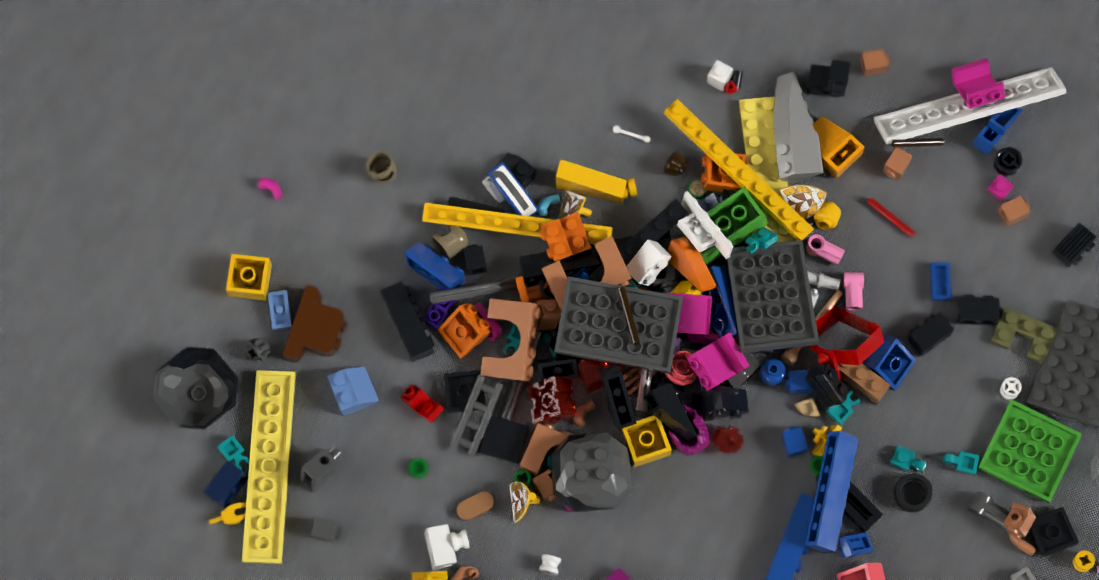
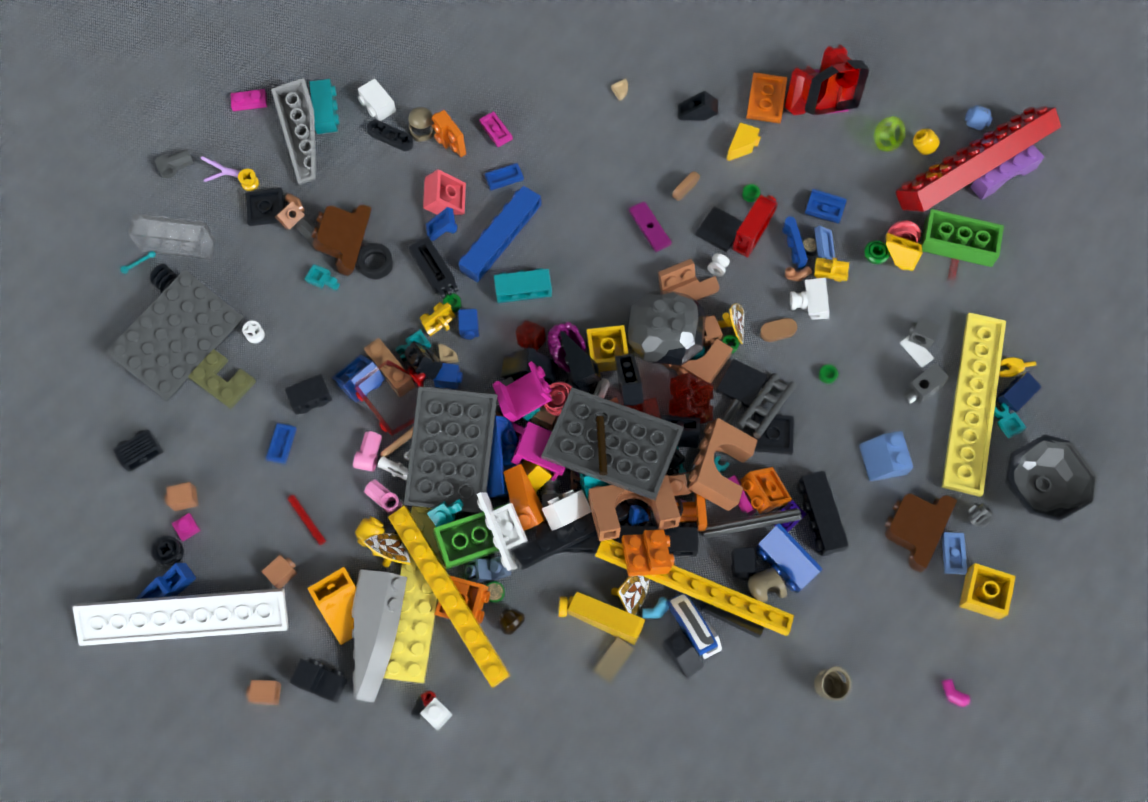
camera: 170 degrees left, 5 degrees down
(327, 511) = (918, 352): none -> white sticker
(421, 403) = (816, 431): red slope -> none
(578, 149) = (613, 660): none -> dark tan tile
(580, 533) = (682, 279): none -> nougat plate
(581, 413) = (663, 391): nougat arm -> none
(616, 129) = (563, 679): white hinge -> none
(750, 497) = (523, 285): none -> teal brick
(771, 378) = (471, 383): blue head -> none
(832, 491) = (447, 265): blue brick -> none
(905, 458) = (371, 292): teal plate -> none
(918, 142) = (251, 587): dark brown bar -> none
(955, 509) = (341, 235): none -> reddish brown brick
(976, 84) = (164, 636): dark pink panel -> none
(978, 310) = (255, 407): black brick -> none
(1030, 451) = (257, 275): bright green plate -> none

